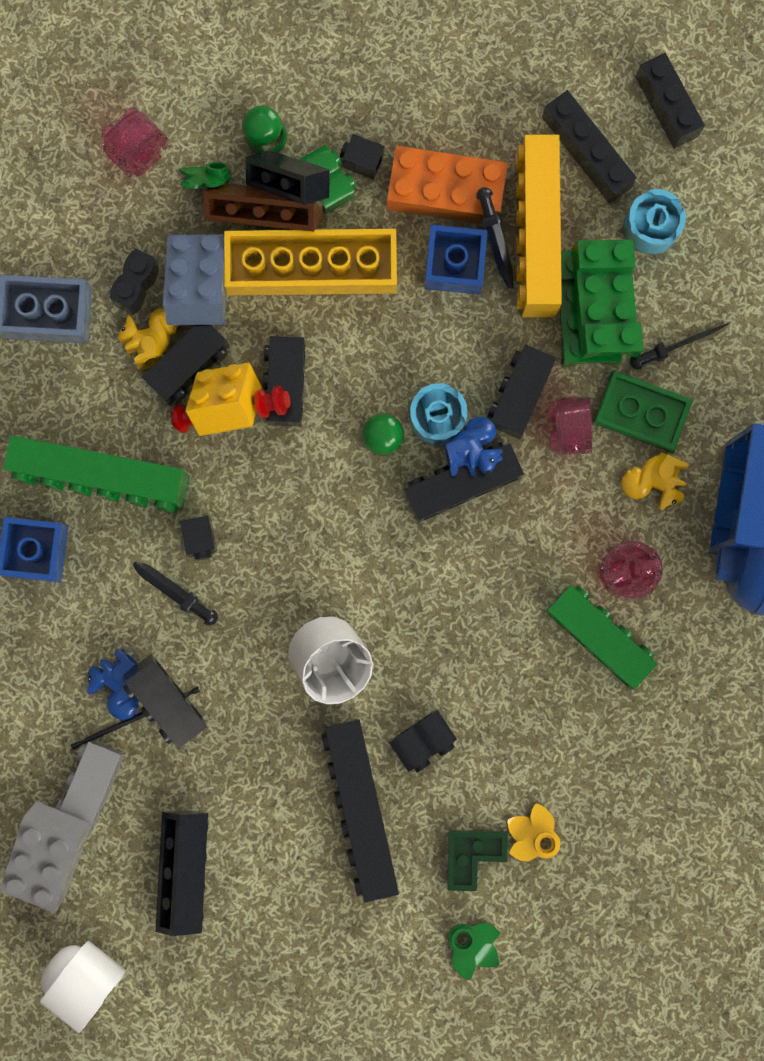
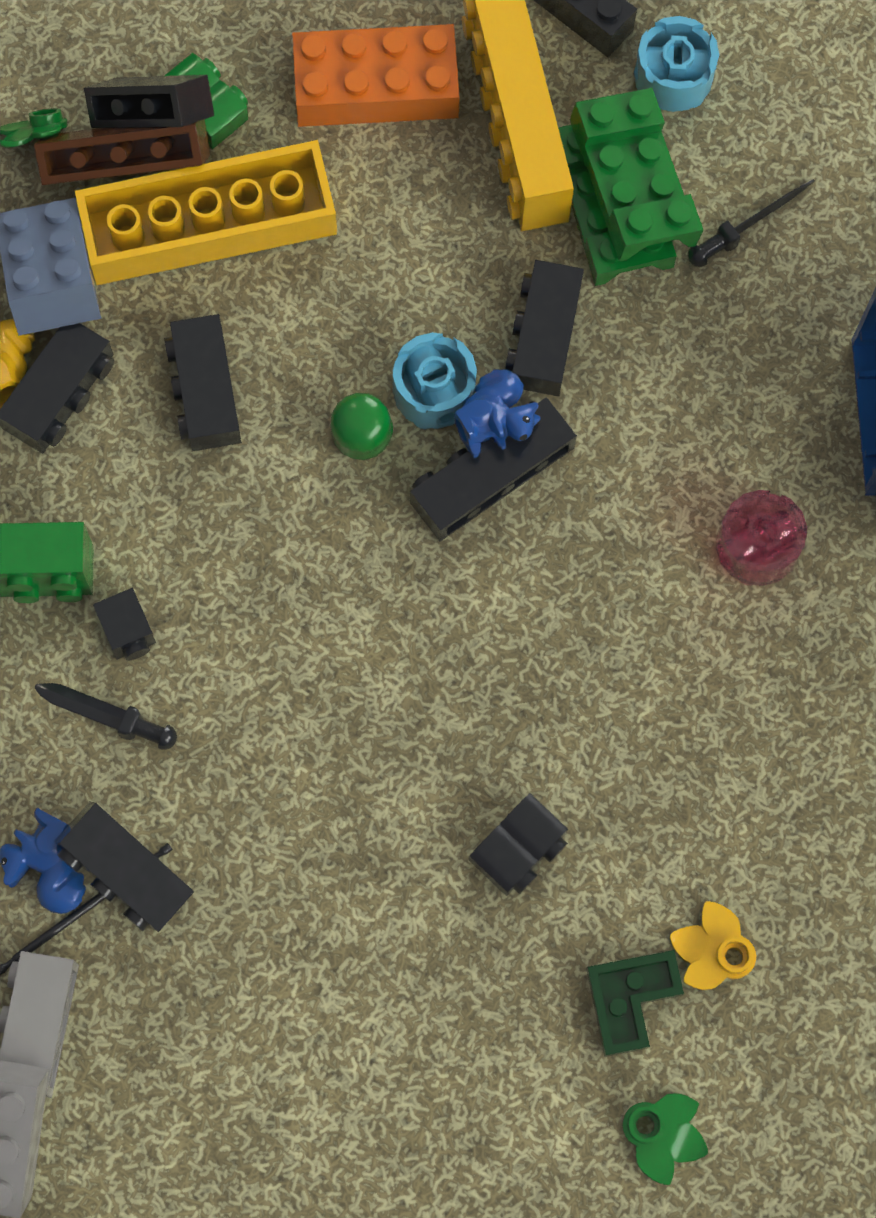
camera: 15 degrees left, 10 degrees down
(181, 873) = (201, 1116): black brick -> none
(227, 401) = (127, 420): yellow brick -> none
(261, 127) = (98, 46): green helmet -> none
(330, 660) = (356, 751): white piece -> none
(361, 810) = (451, 966): black brick -> none
(362, 156) = (248, 60): black brick -> none
(456, 259) = (411, 168): blue brick -> none
(492, 220) = (449, 103): black sword -> none
(573, 425) = (629, 355): clear pink brick -> none
(601, 637) = (742, 641): green brick -> none
(643, 411) = (723, 322): green tile -> none
(658, 473) = (767, 399): yellow animal -> none

